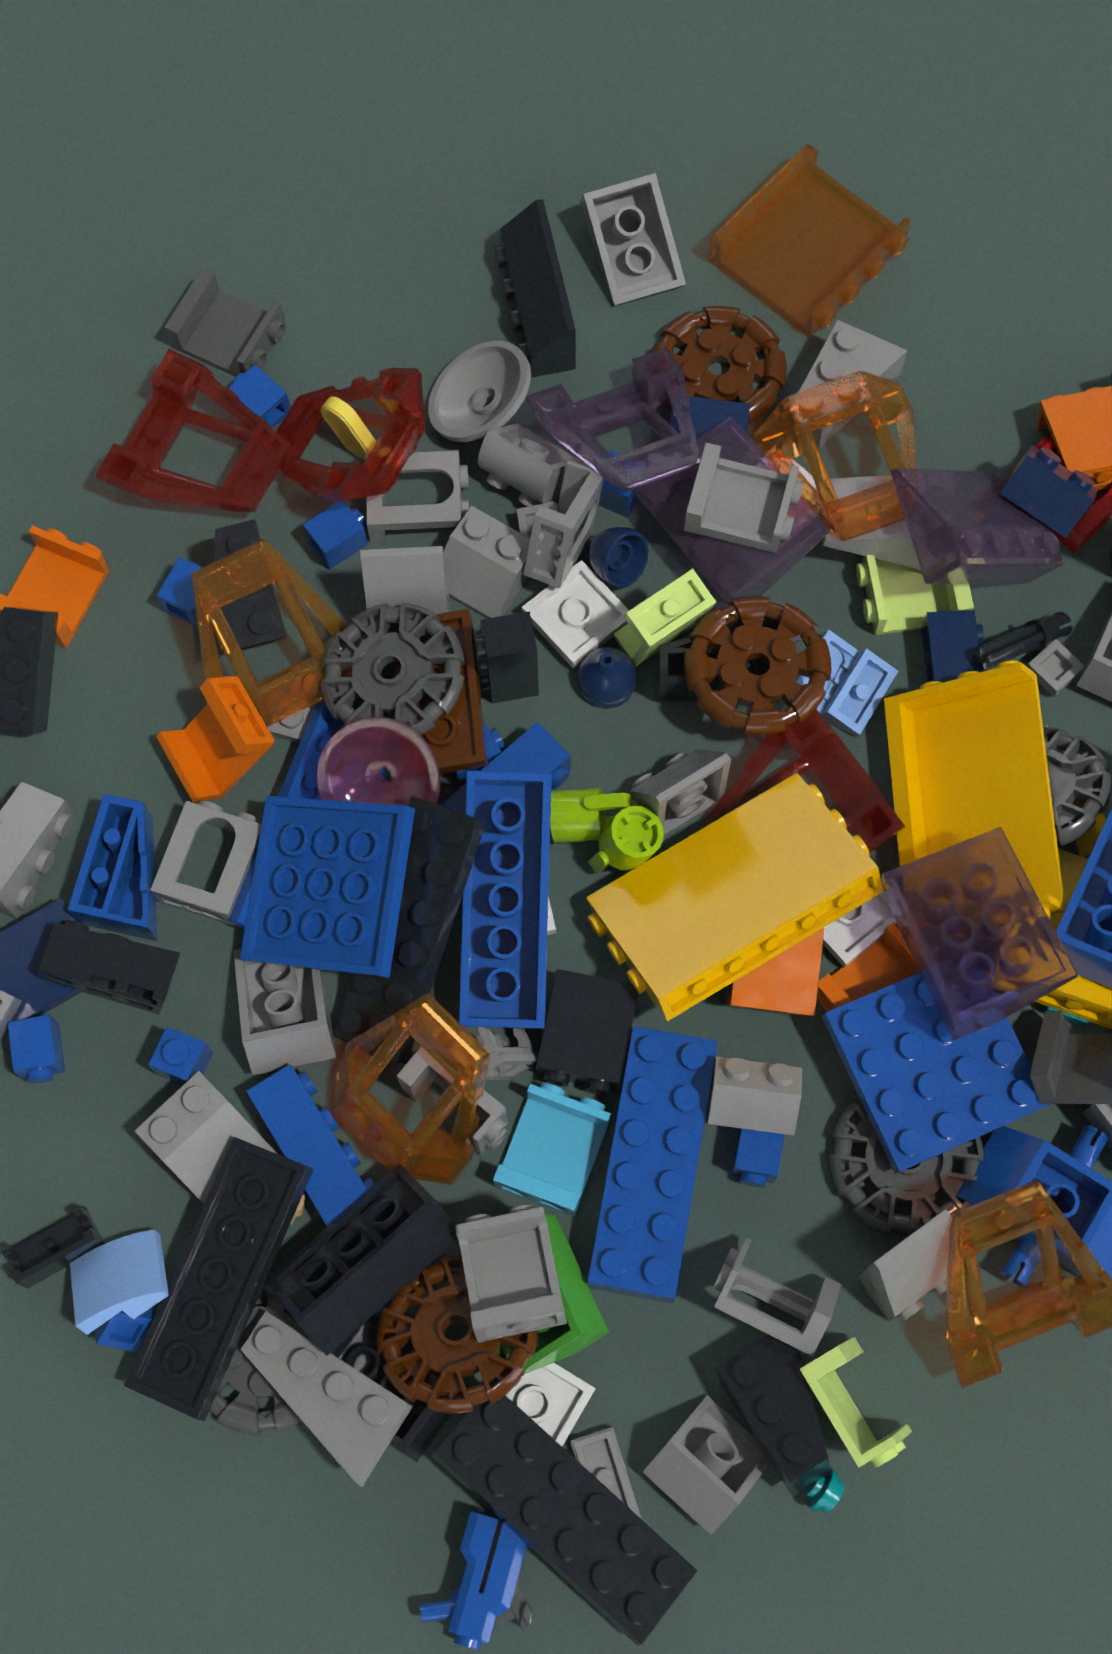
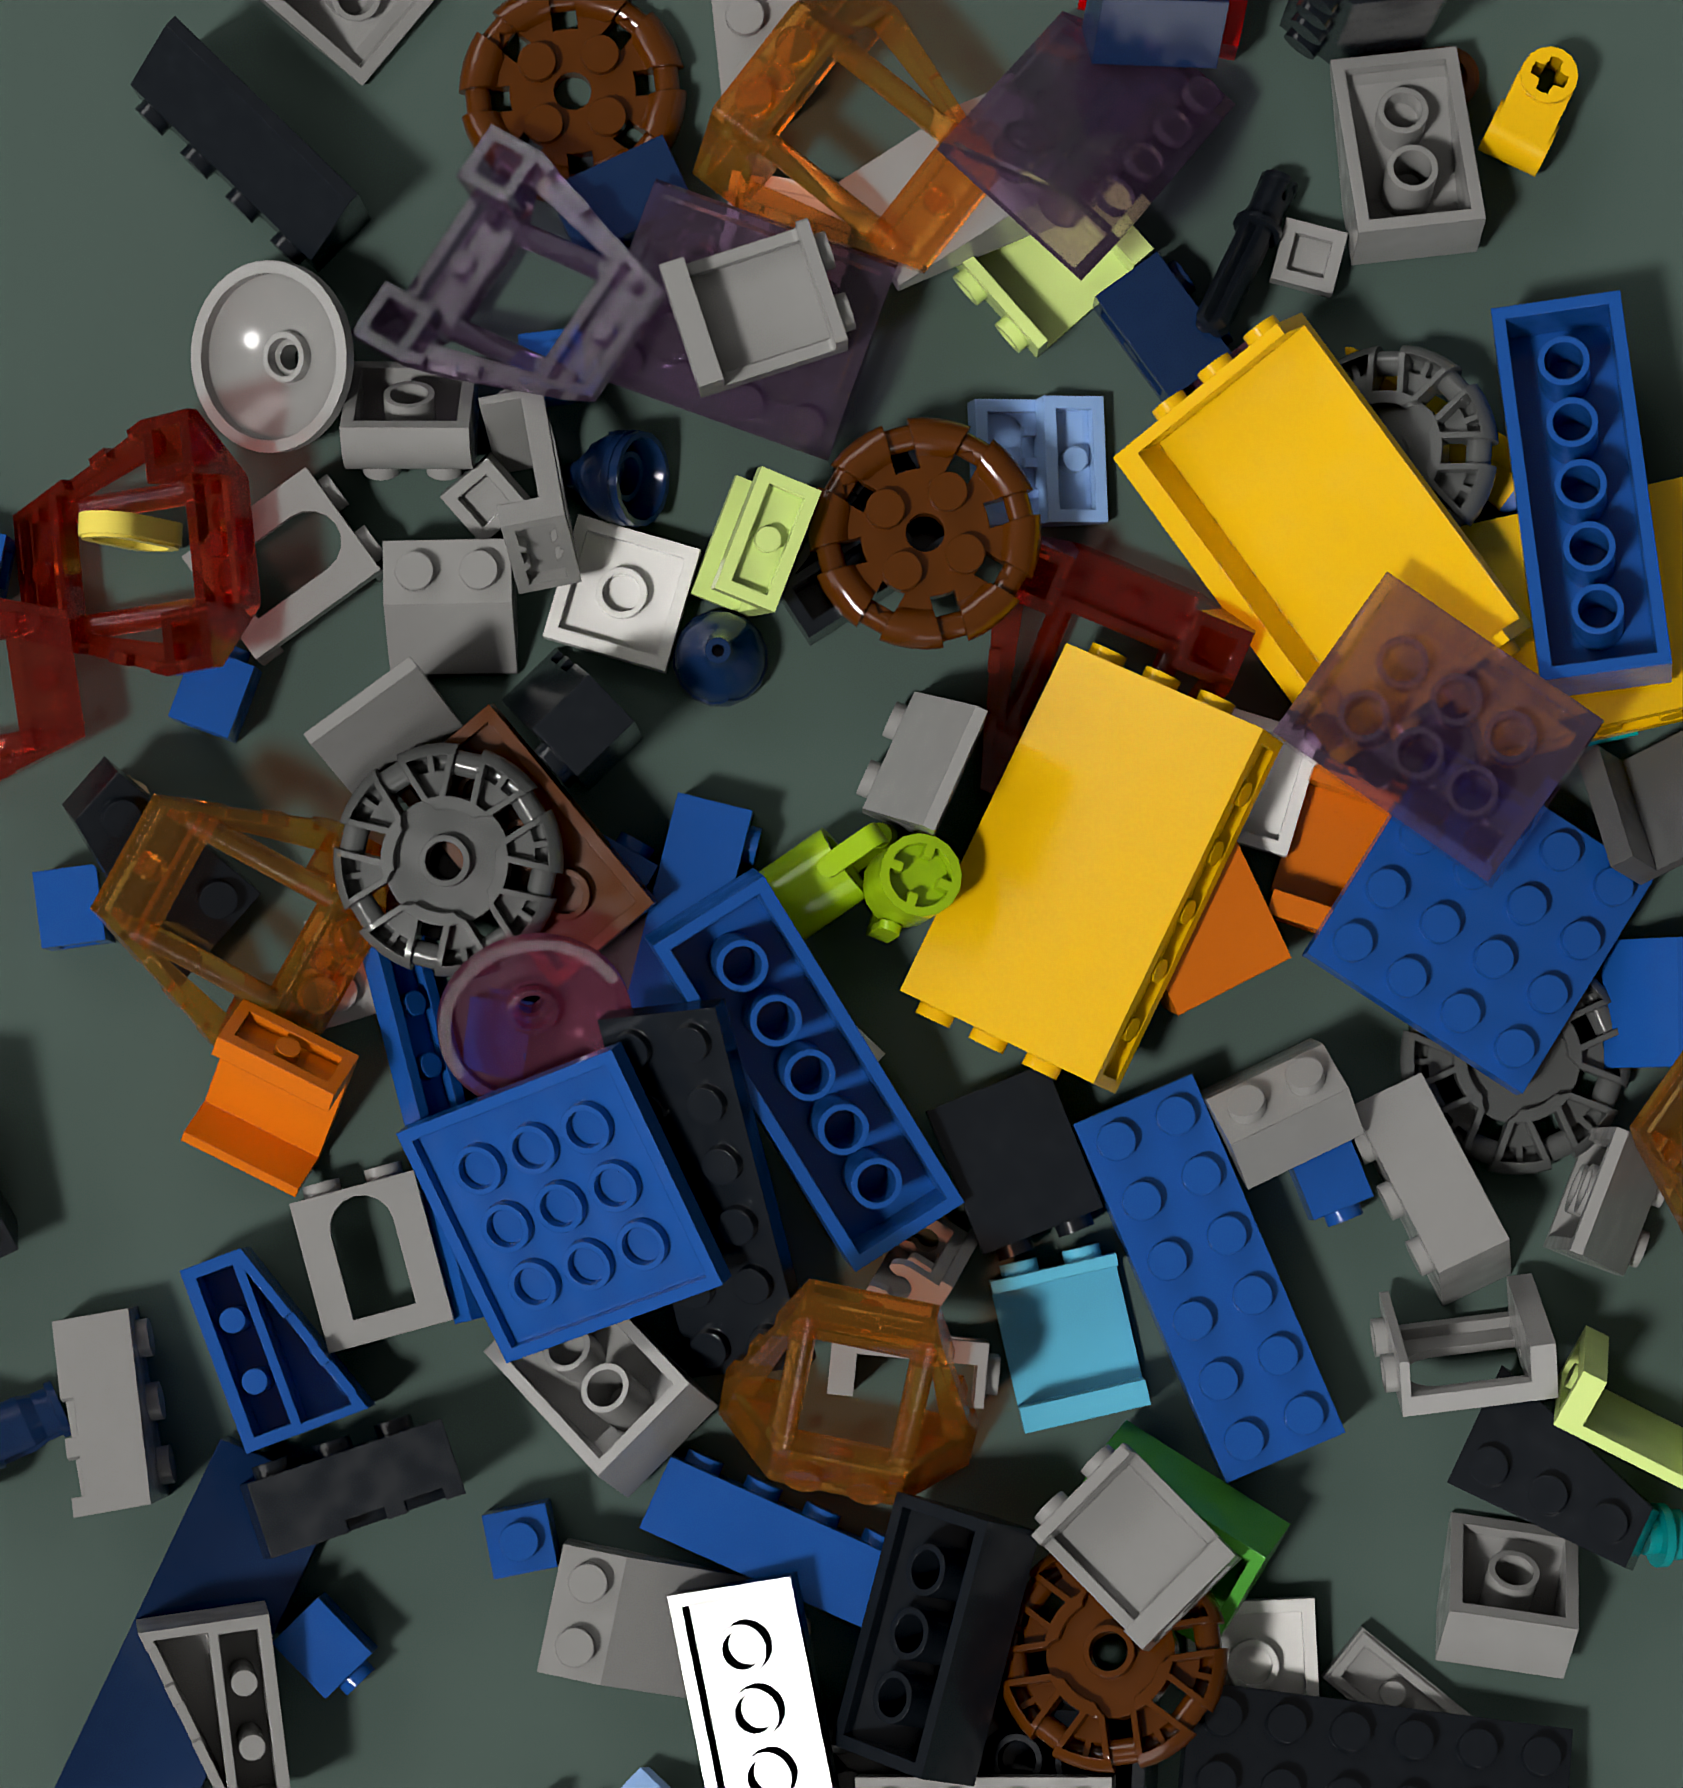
camera: 30 degrees left, 15 degrees up
(813, 1199) = (1432, 1190): none -> light grey wedge

